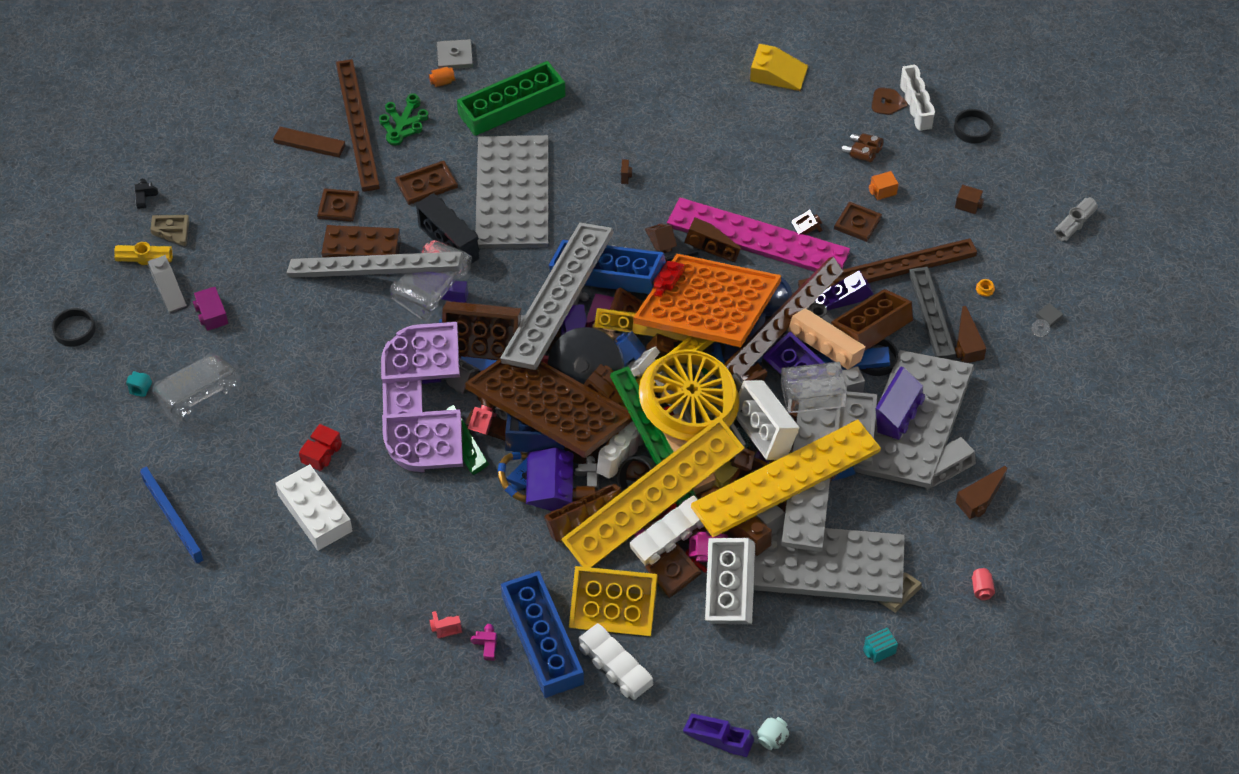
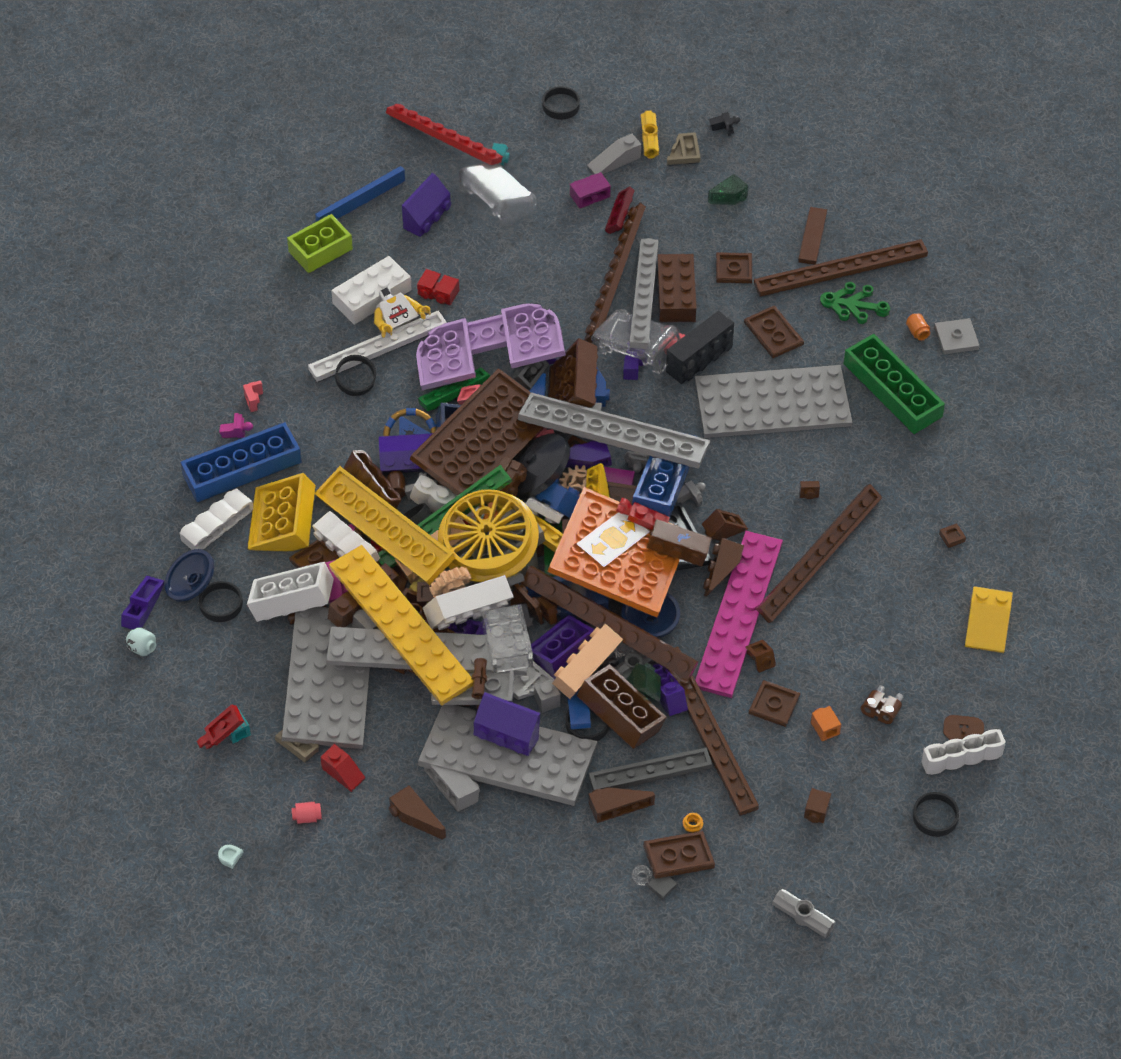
camera: 85 degrees right, 0 degrees up
(98, 430) = (443, 134): none -> red plate
(205, 451) = (425, 206): none -> dark purple slope
(237, 552) = (320, 243): none -> lime brick
(239, 195) = (729, 191): none -> clear green slope
(244, 286) = (619, 210): none -> dark red plate
(329, 295) = (616, 268): none -> reddish brown plate
(354, 483) = (396, 311): none -> torso
(392, 508) = (377, 346): none -> white plate
(435, 510) = (355, 358): none -> black tyre
(684, 81) = (952, 535): none -> reddish brown plate
(696, 300) = (612, 538): none -> white sticker
(697, 698) = (189, 575): none -> dark blue dish
(700, 255) = (679, 542): none -> brick
(702, 175) = (819, 553): none -> reddish brown plate
(720, 641) = (221, 585): none -> black tyre
(748, 427) = (450, 581): none -> light nougat gear
(843, 301) = (646, 680): none -> clear green slope
(854, 415) = (479, 678): none -> reddish brown pin
(894, 649) = (221, 727): none -> red plate
(930, 554) = (341, 767): none -> red slope
(1020, 299) = (678, 854): none -> reddish brown tile
(1030, 655) = (229, 855): none -> light aqua tile

